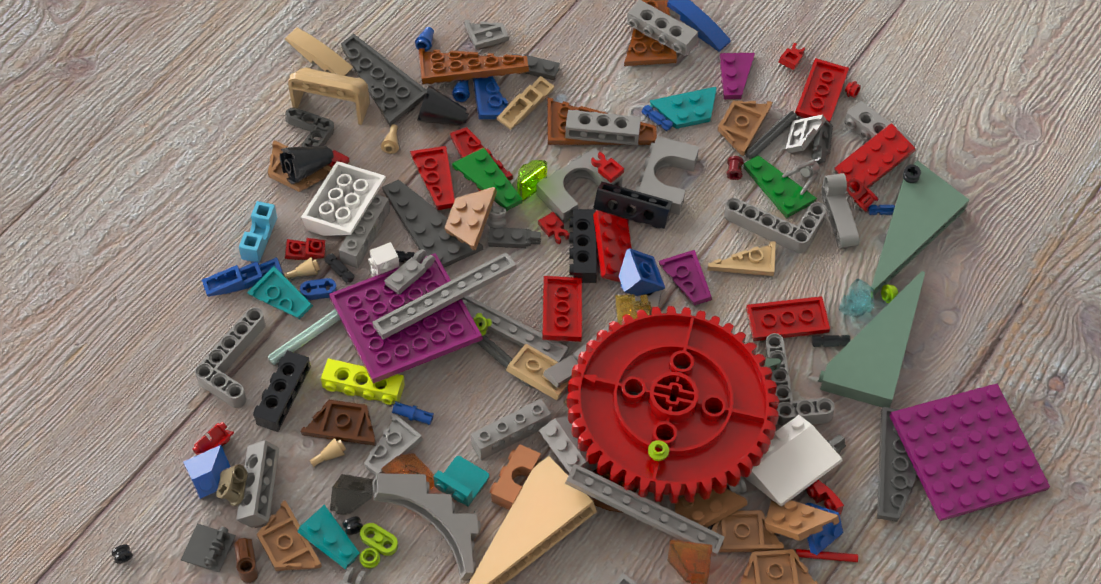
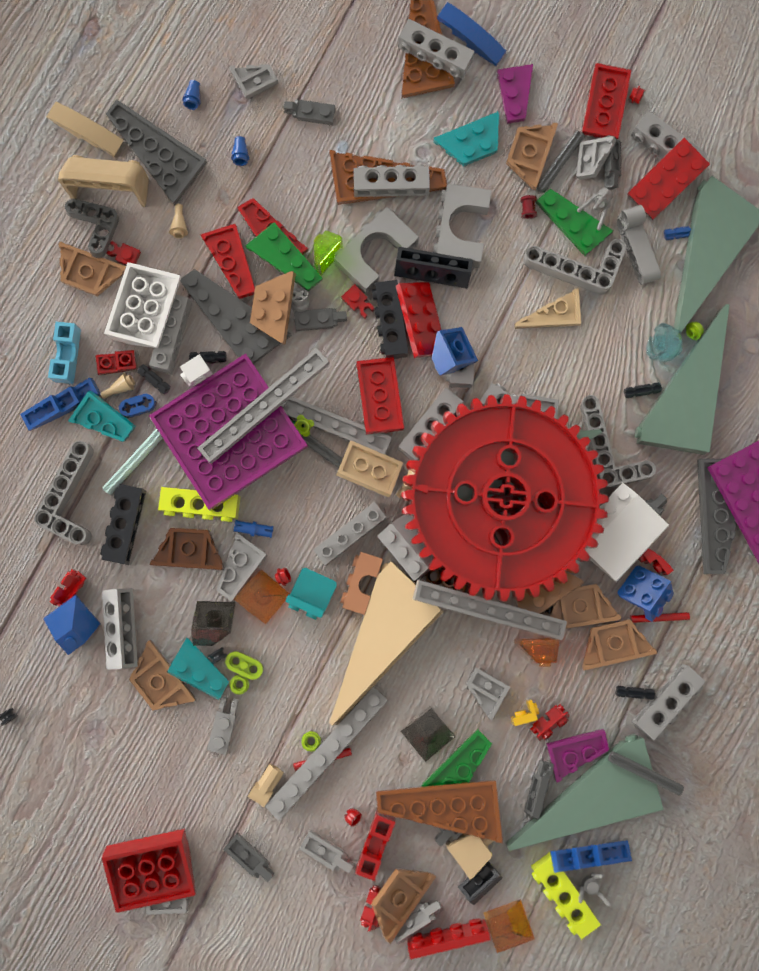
camera: 10 degrees left, 25 degrees up
(208, 547) = (86, 696): dark grey hinge -> none
(232, 484) = (95, 634): dark tan piece -> none
(246, 559) = (123, 702): reddish brown piece -> none
(304, 161) = (95, 267): black cone -> none
(331, 451) = (185, 579): tan cone -> none
(409, 271) = (223, 381): light grey hinge -> none
(434, 461) = (283, 576): none -> red plate
(438, 509) = (296, 632): light grey arch -> none
(441, 109) = (223, 181): black cone -> none
(467, 65) = (240, 123): dark orange wing -> none
(488, 98) = (270, 160): blue wing -> none
(525, 103) = (307, 160): tan slope -> none
(561, 372) = (391, 466): light grey tile -> none
(607, 168) = (404, 232): red plate -> none
(627, 305) = (445, 396): clear yellow plate -> none
(657, 118) = (443, 157): blue axle -> none
(658, 456) = (495, 565): lime plate -> none
(688, 276) = (497, 339): magenta wing -> none
(788, 318) = (599, 372): red plate -> none
(792, 57) = (571, 63): red plate -> none
(797, 519) = (633, 596): medium nougat wing -> none
(863, 196) = (658, 223): red piece -> none
(916, 172) = (704, 197): black bush -> none

